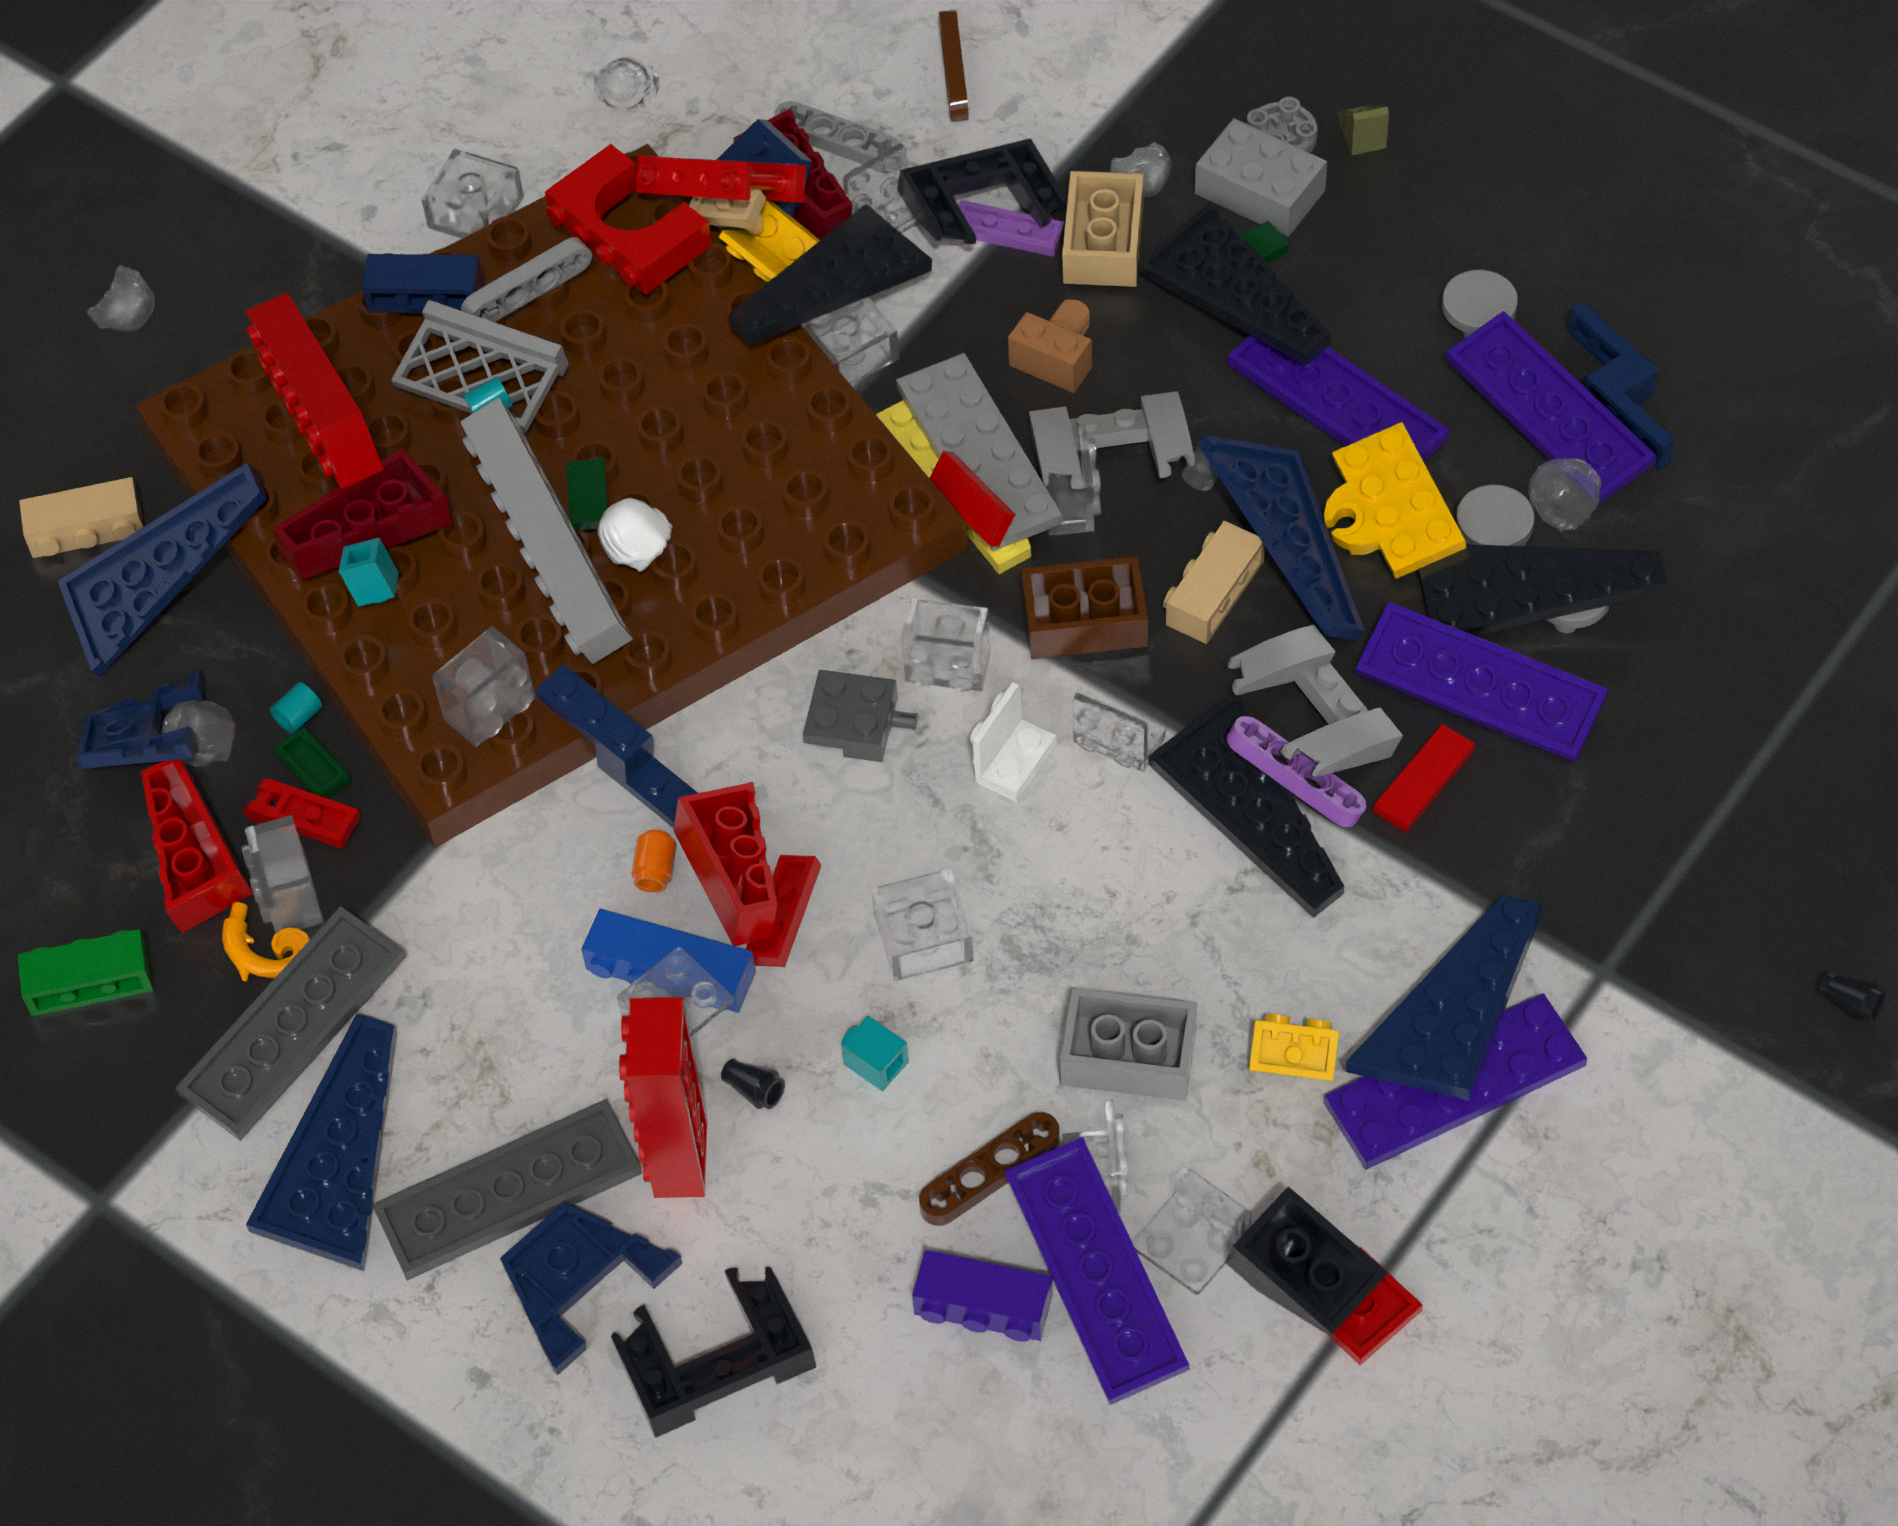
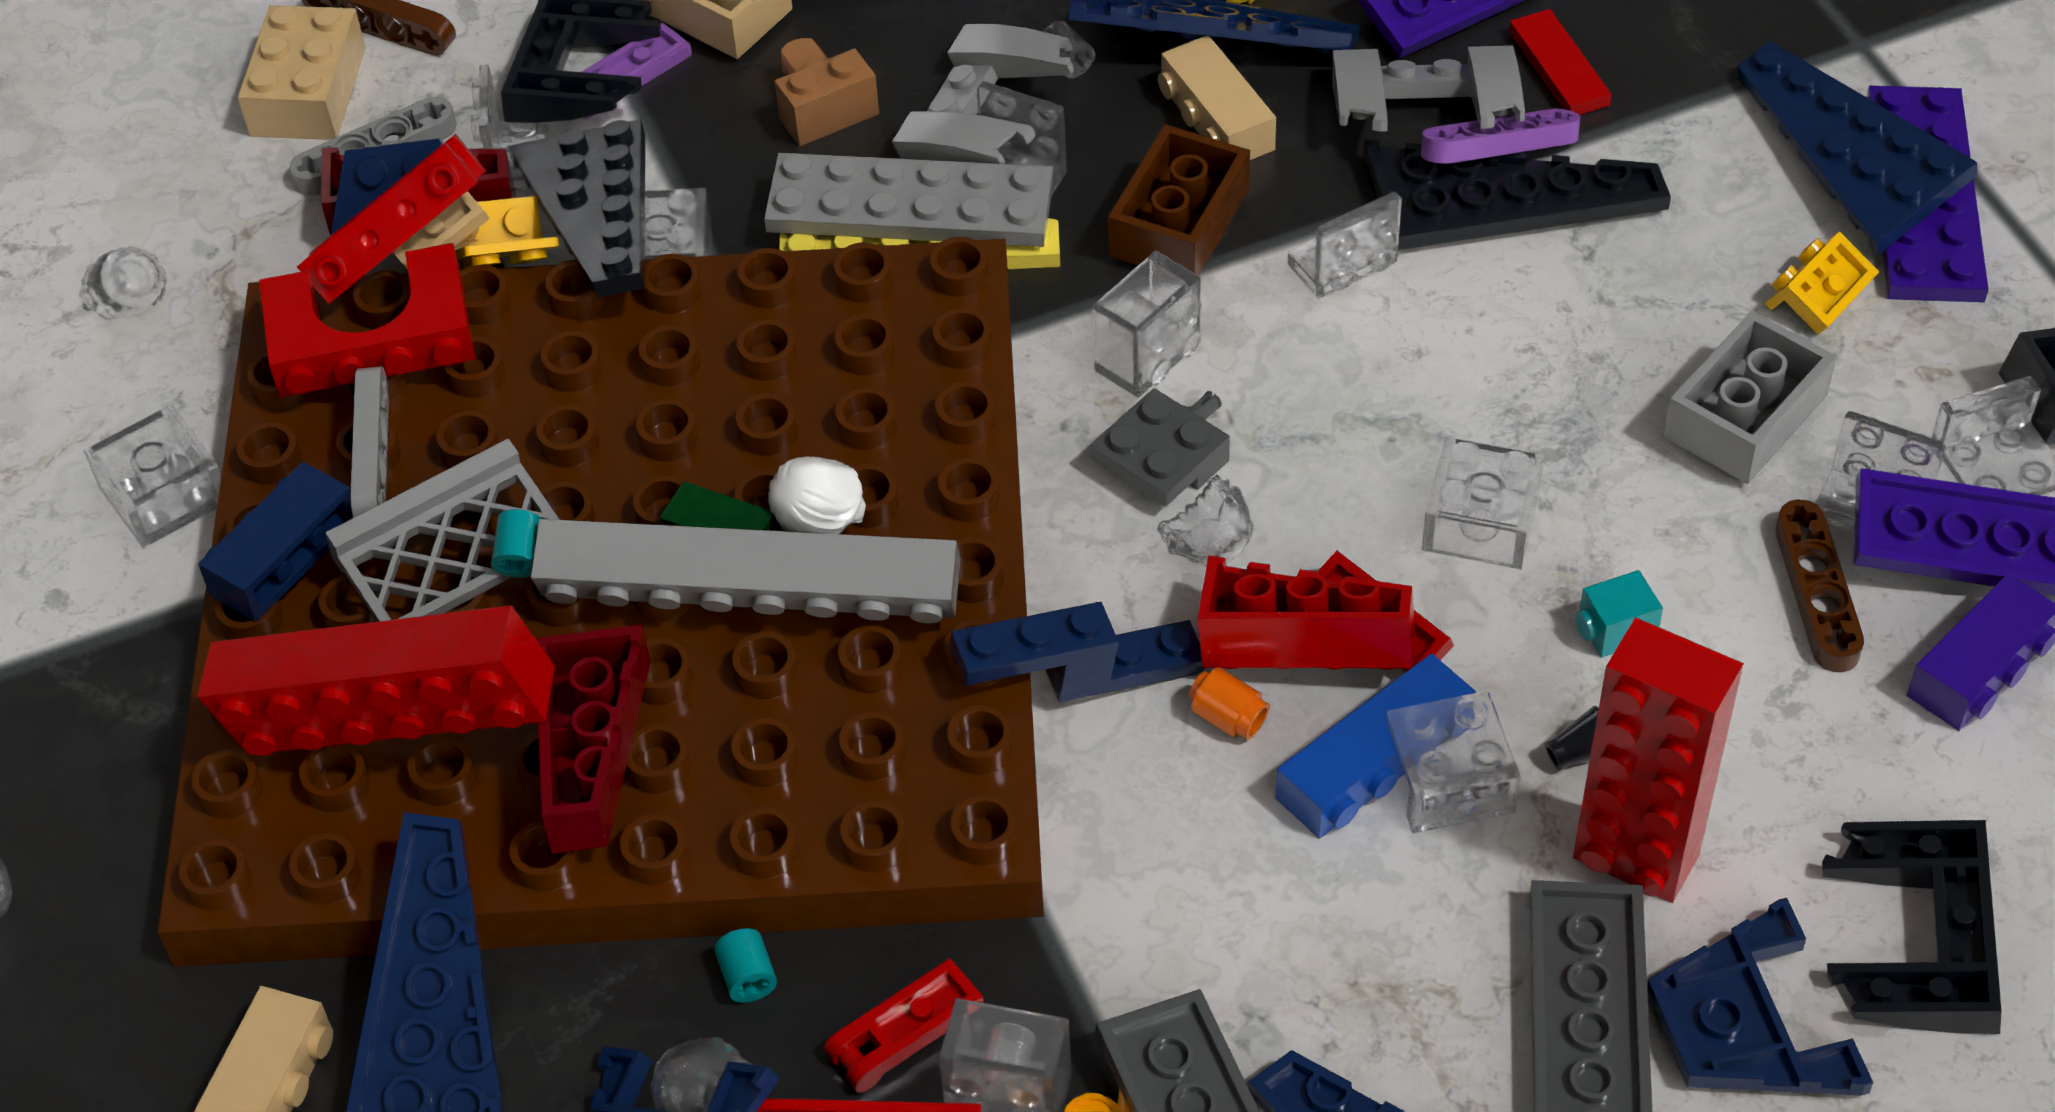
camera: 60 degrees left, 5 degrees down
(311, 764) = (833, 989): dark green tile -> none
(368, 572) = (672, 758): teal brick -> none
(484, 686) = (942, 708): clear brick -> none
(795, 776) = (1211, 526): none -> clear hair
(867, 58) = (302, 72): none -> tan brick
(972, 498) = (986, 215): red tile -> none
(1009, 748) = (1304, 338): white bracket -> none

